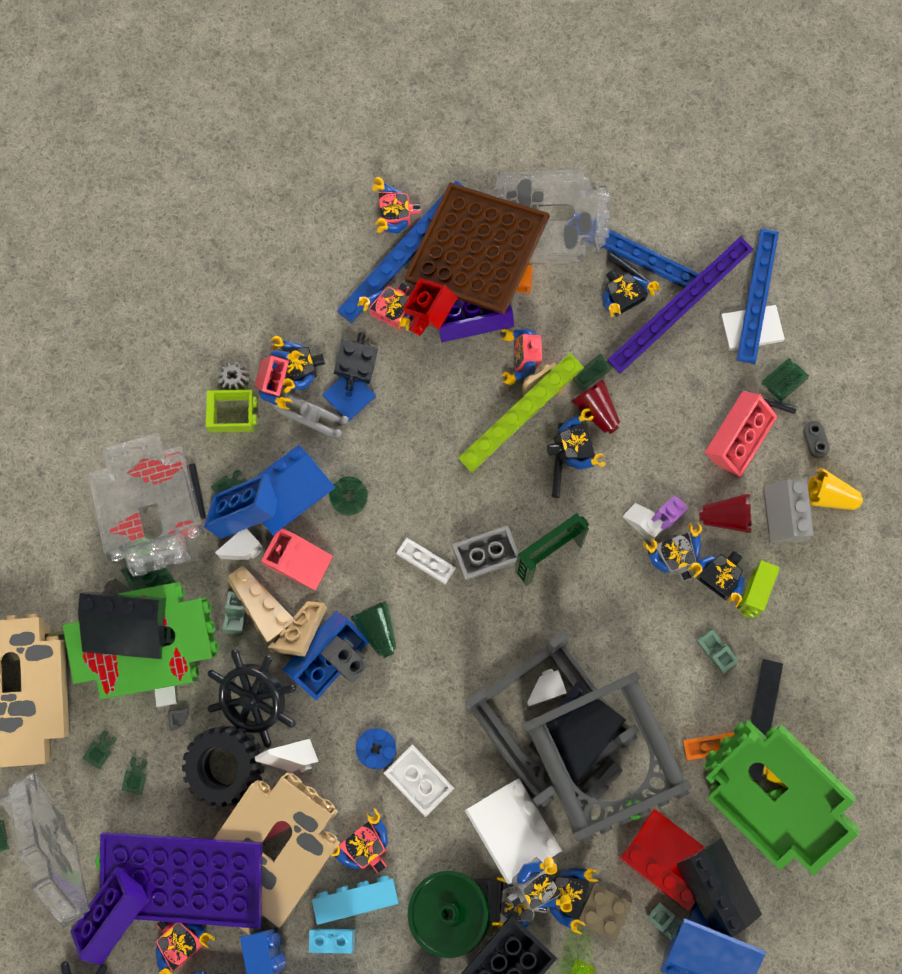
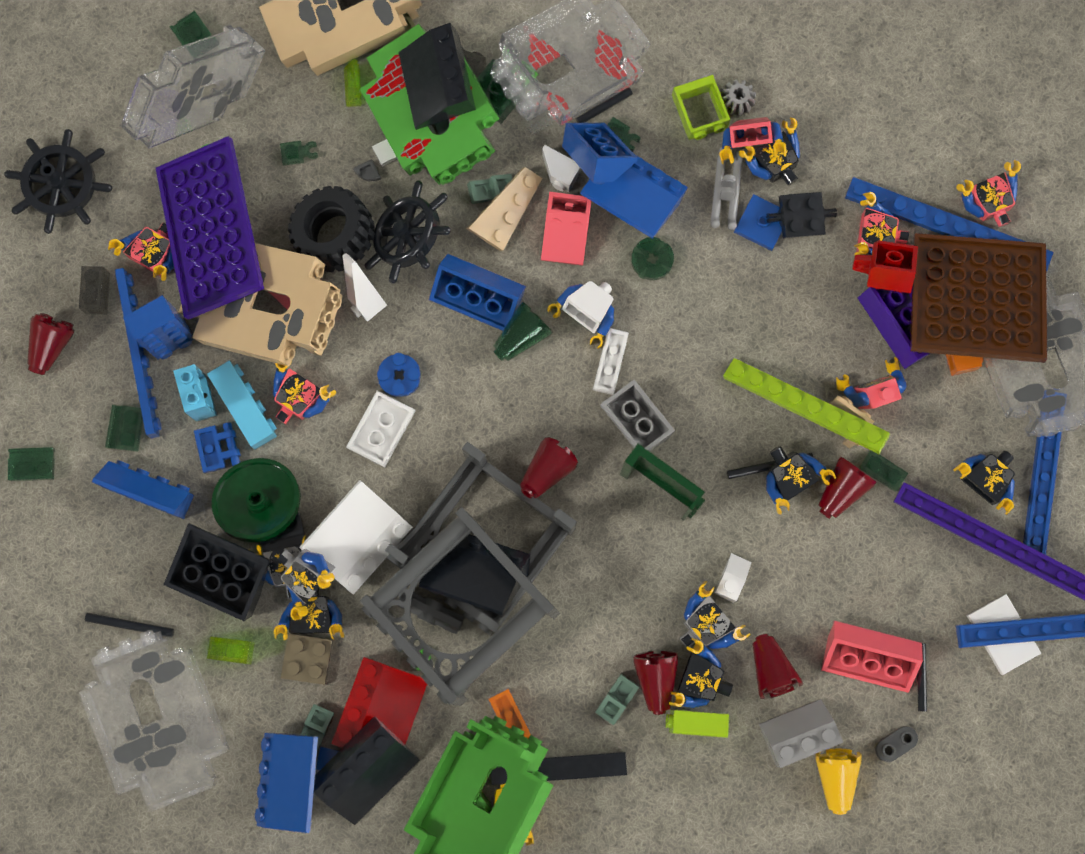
camera: 70 degrees right, 5 degrees up
(90, 706) = (352, 84): none -> clear neon green slope
(98, 752) = (310, 108): clear green plate -> none
(108, 917) = (155, 173): dark purple slope -> none
(301, 632) = (485, 257): tan wing -> none
(347, 662) = (474, 309): dark grey brick -> none
(373, 562) = (588, 306): none -> white torso
(386, 944) = (210, 447): none -> blue plate
(504, 643) = (547, 468): none -> dark red cone
(547, 688) = (516, 528): white slope -> none
(625, 267) = (1021, 473): black bar -> none
(670, 512) = (751, 602): medium lavender hinge -> none
(710, 611) = (656, 678): none -> dark red cone
(785, 379) = (954, 688): clear green plate -> none

